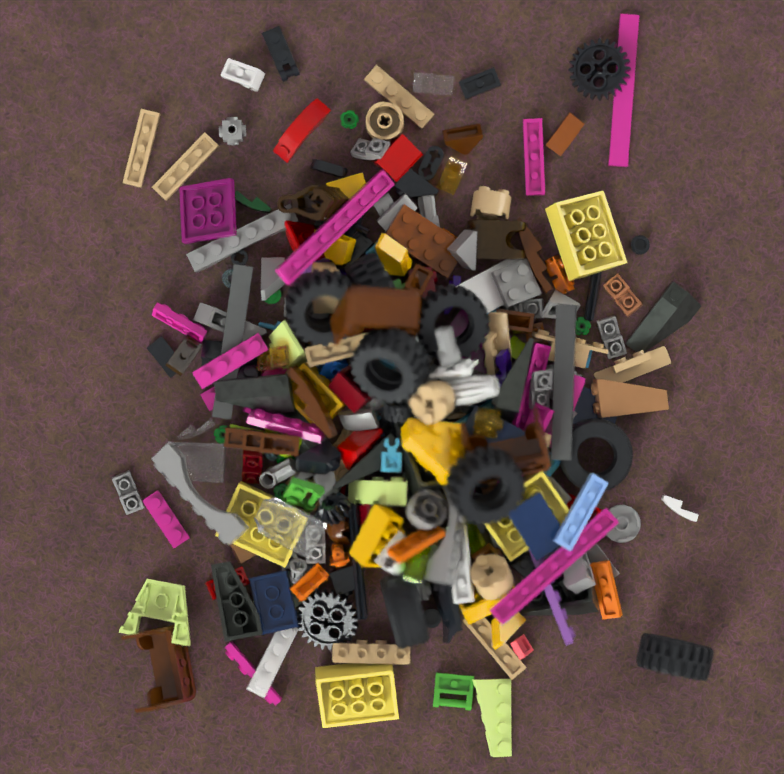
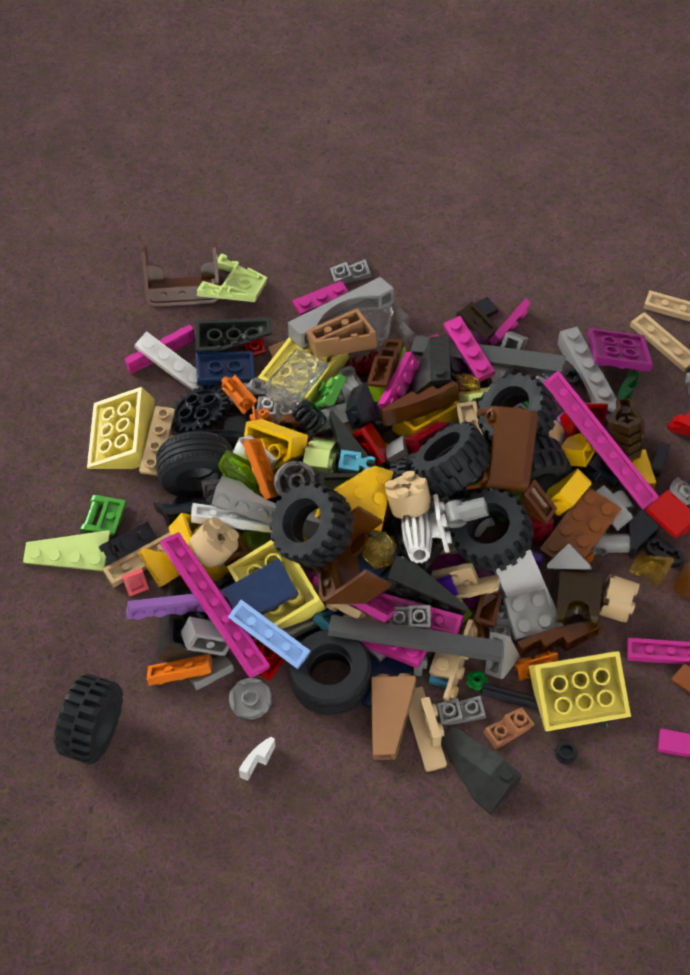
camera: 100 degrees right, 30 degrees down
(238, 487) = (342, 335): none -> medium nougat wedge
(483, 661) = (128, 542): none -> black plate

